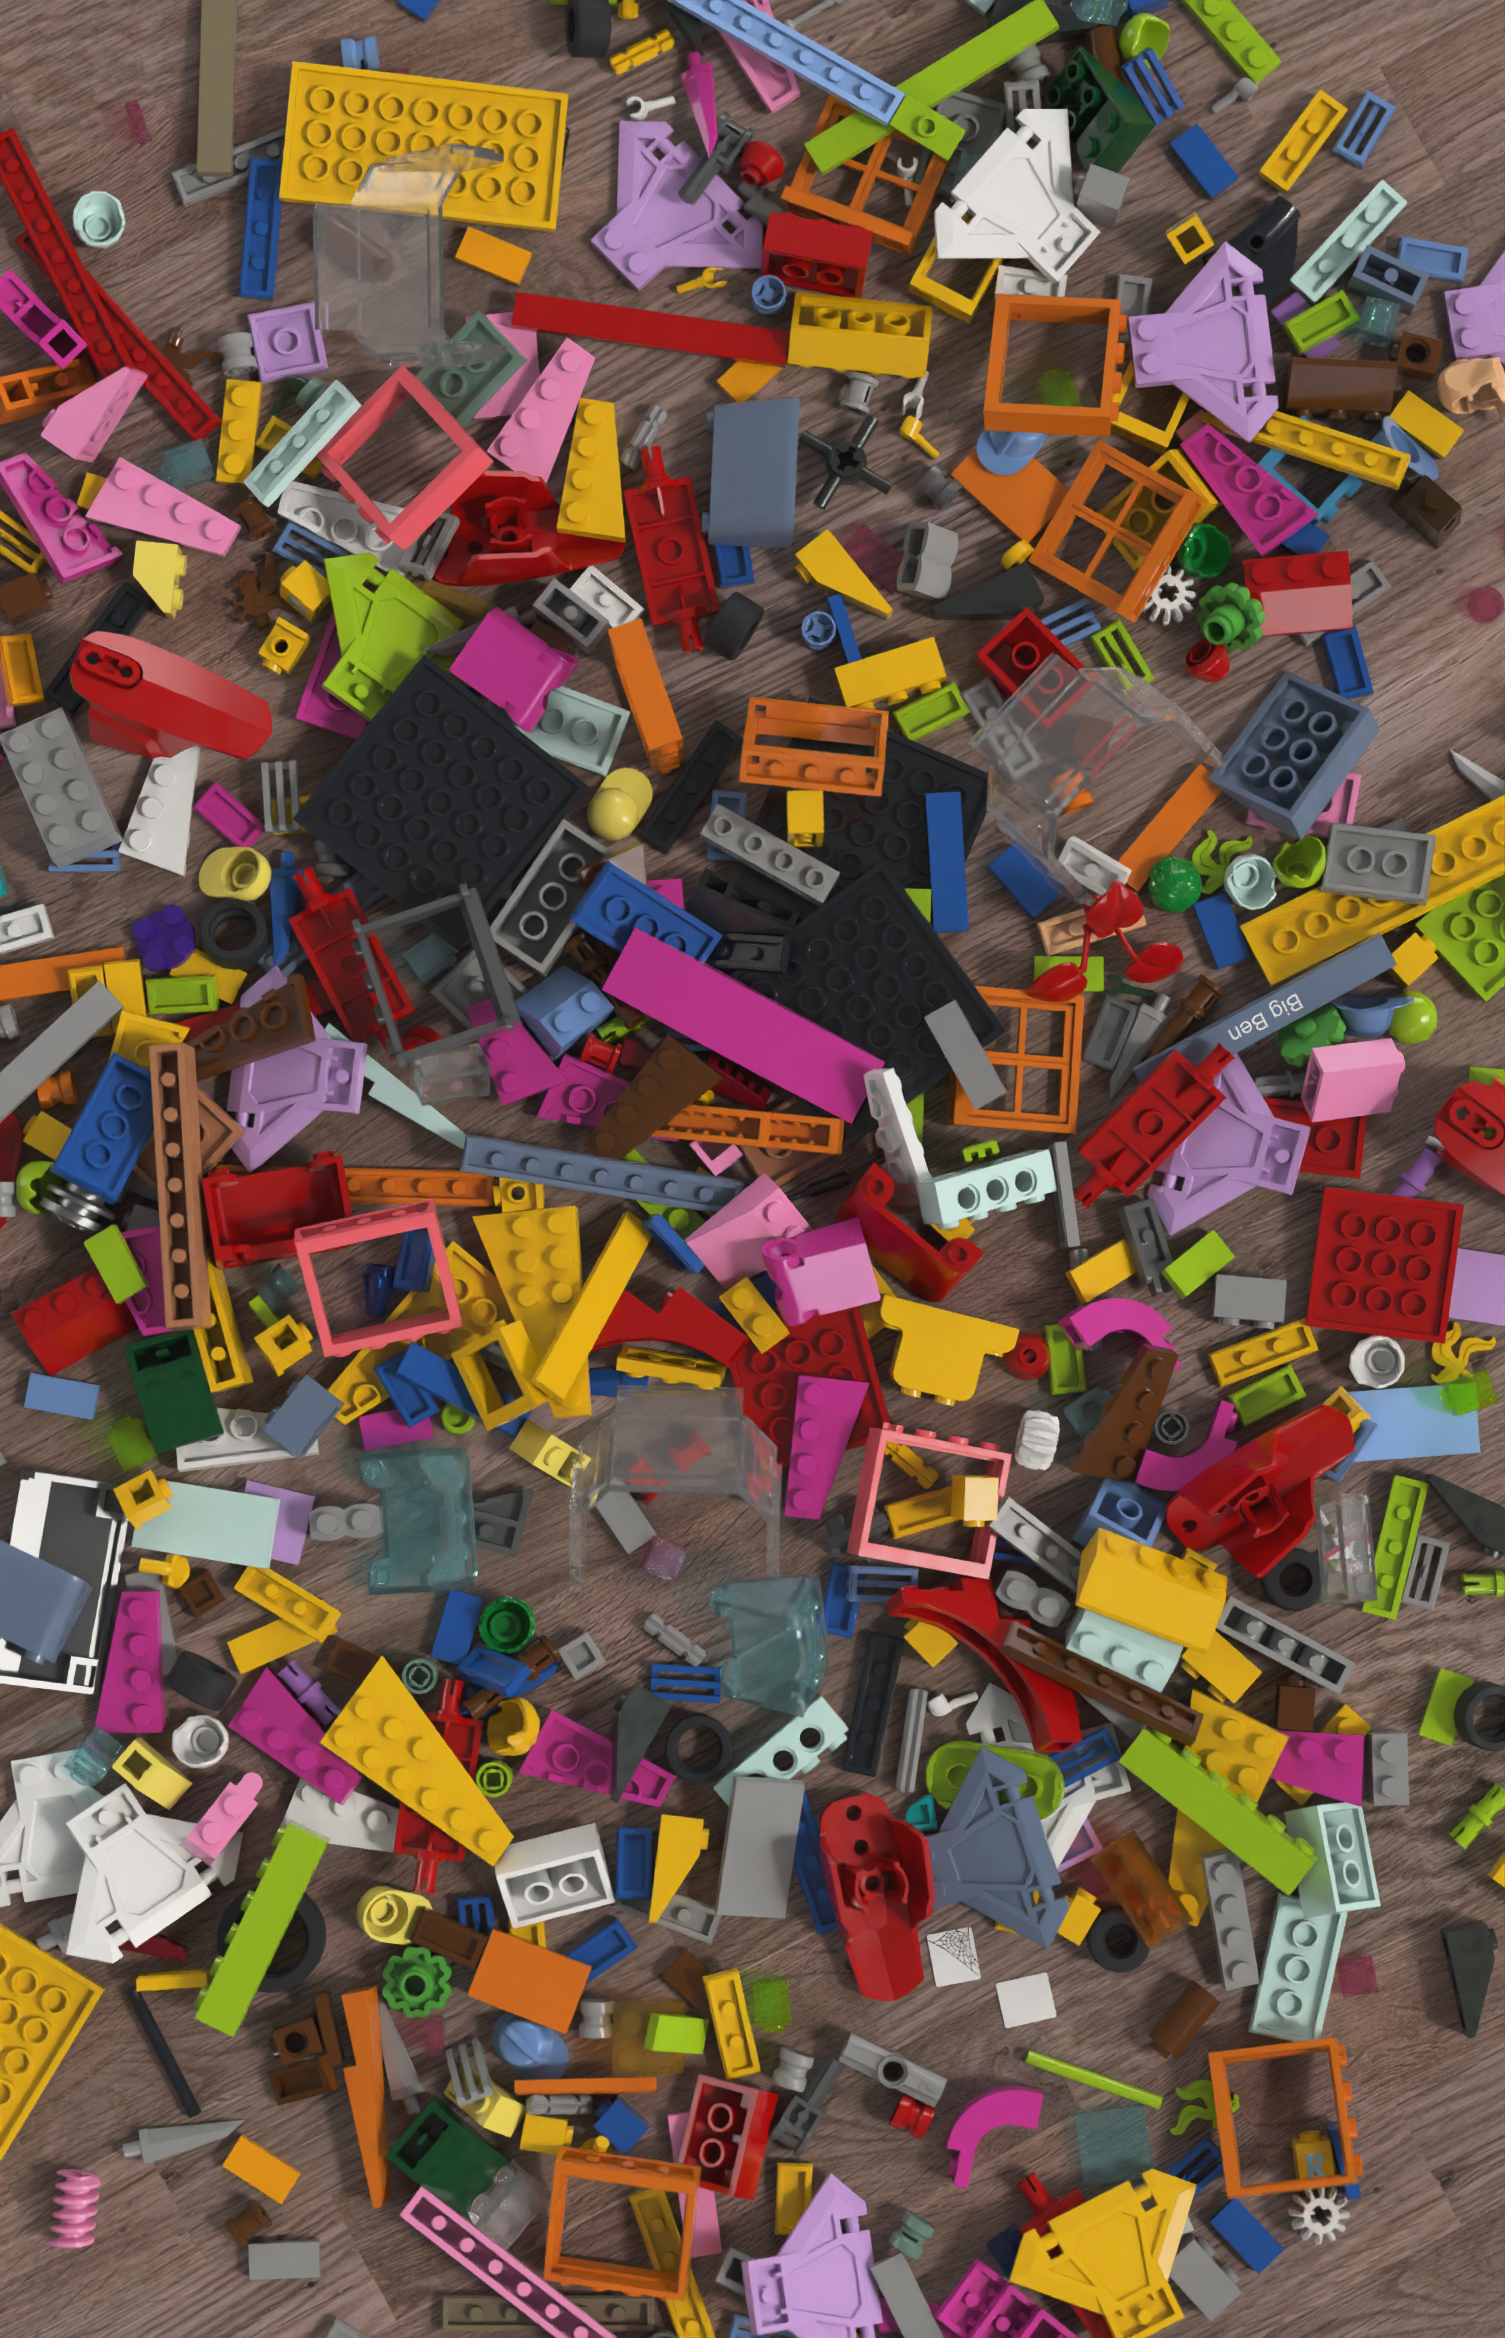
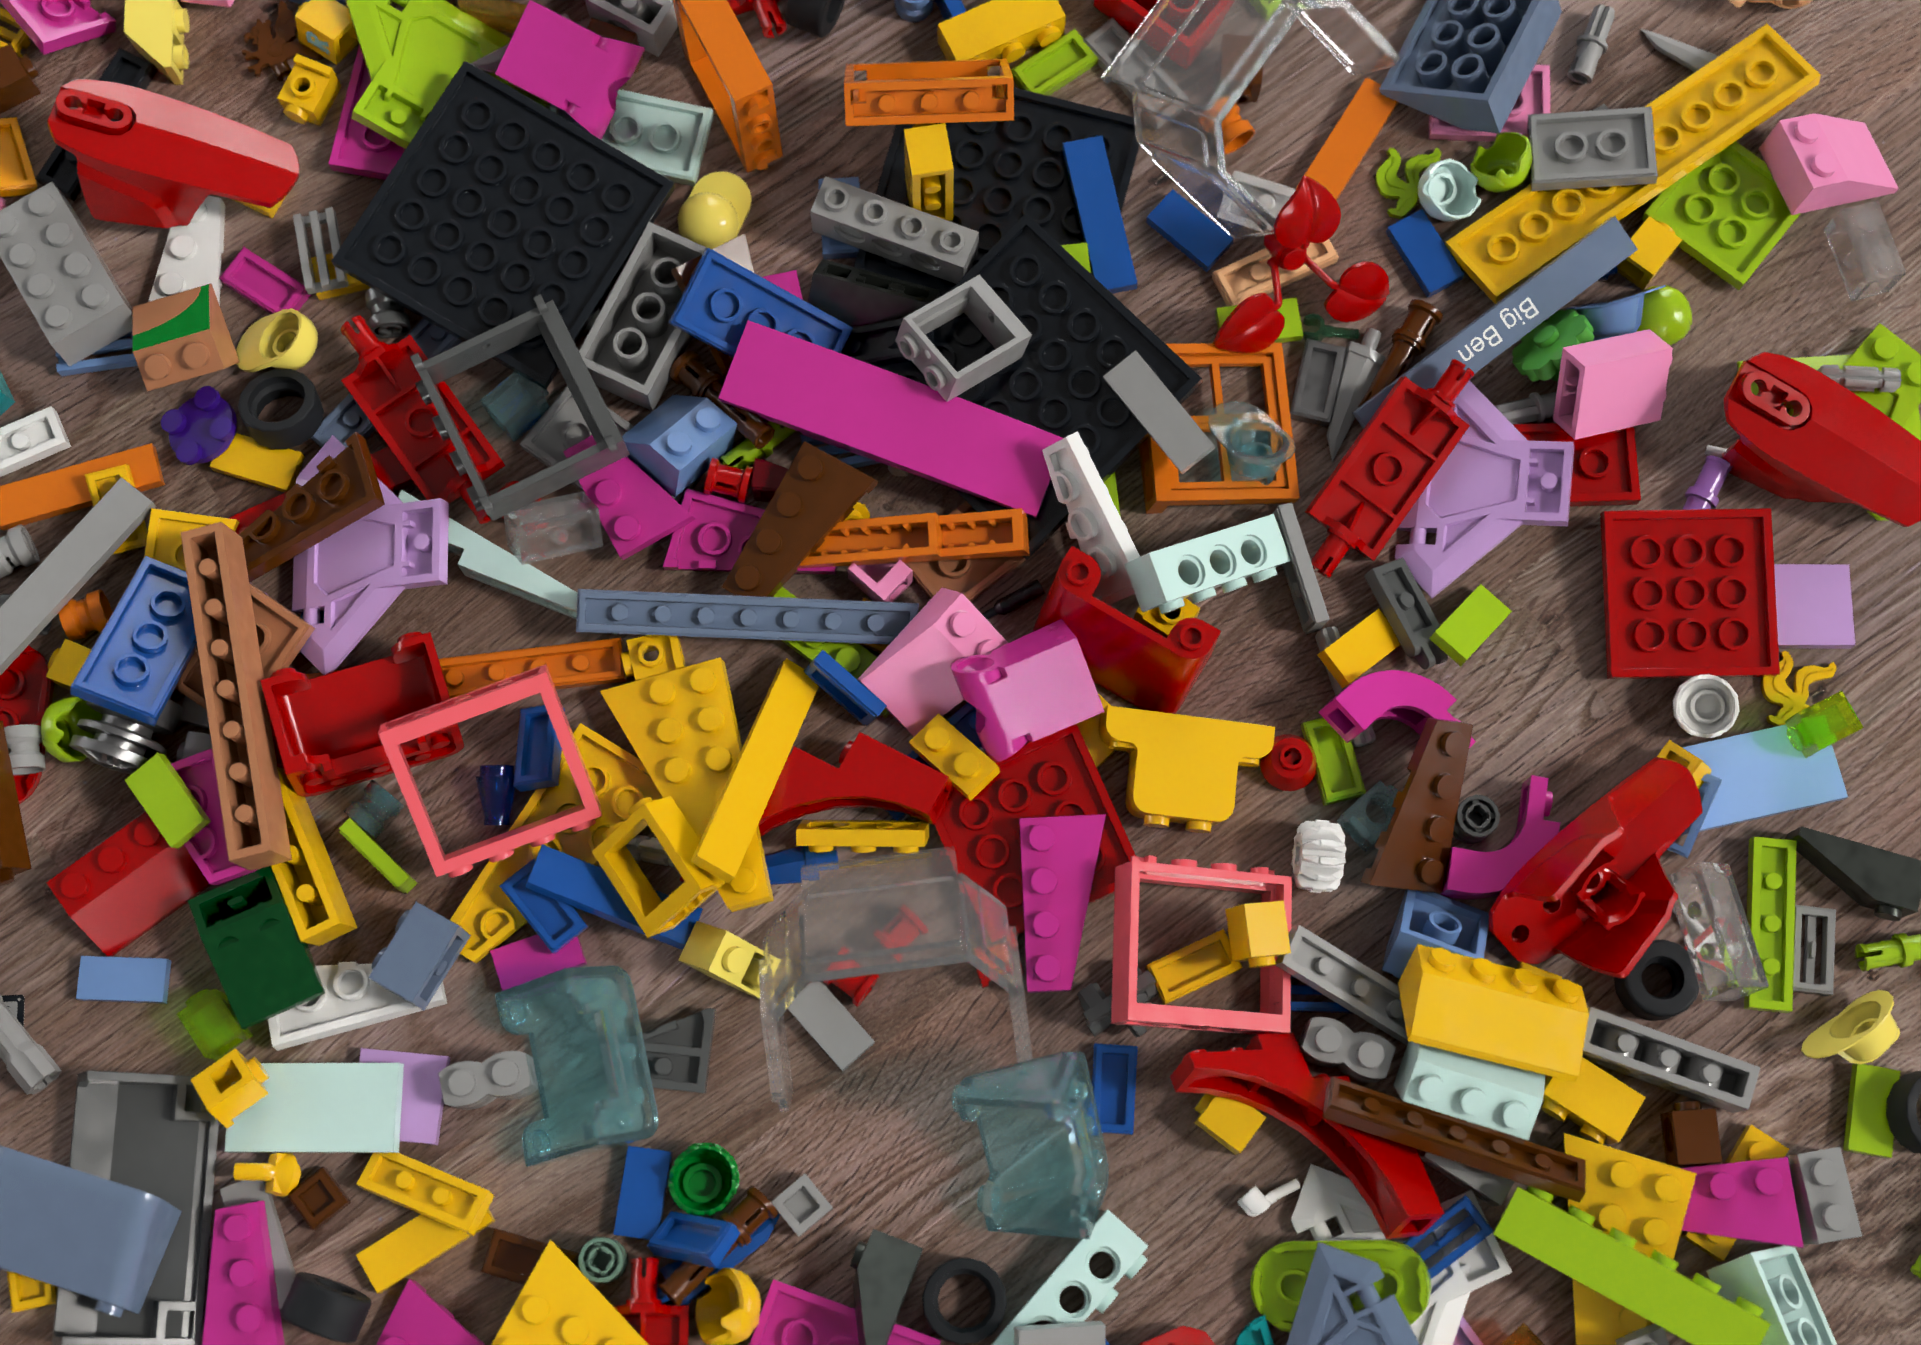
camera: 10 degrees left, 10 degrees down
(126, 985) = (158, 480): yellow tile -> none
(158, 863) = (181, 337): none -> nougat slope
(182, 994) = (226, 486): lime tile -> none
(277, 1336) = (384, 868): yellow brick -> none
(283, 904) = (336, 363): blue bar -> none
(309, 1692) = (465, 1302): medium lavender pin -> none
(456, 1420) = (611, 937): lime tile -> none
(664, 1558) = (887, 1069): clear pink tile -> none
(674, 1640) = (914, 1168): light grey axle -> none
(691, 787) = (794, 181): black tile -> none
(716, 1684) = (973, 1218): blue tile -> none
(739, 1082) = (894, 493): dark red slope -> none
(837, 949) = (988, 315): none -> light grey window
(853, 1581) = (1124, 1063): medium blue tile -> none
(873, 1704) = (1172, 1213): black tile -> none
(911, 1464) = (1171, 910): yellow axle -> none
(911, 1740) = (1227, 1251): light grey axle -> none
(978, 1152) = (1198, 523): lime tile -> none
(1041, 1081) = (1252, 440): none -> clear light blue piece
(1174, 884) = (1365, 207): green hair -> none
(1249, 1300) = (1538, 657): light grey brick -> none
(1262, 1352) = (1564, 718): yellow tile -> none
(1267, 1396) = (1582, 767): lime tile -> none
(1401, 761) = (1591, 45): none -> light grey axle
(1444, 1645) = (1858, 1032): none -> light yellow piece

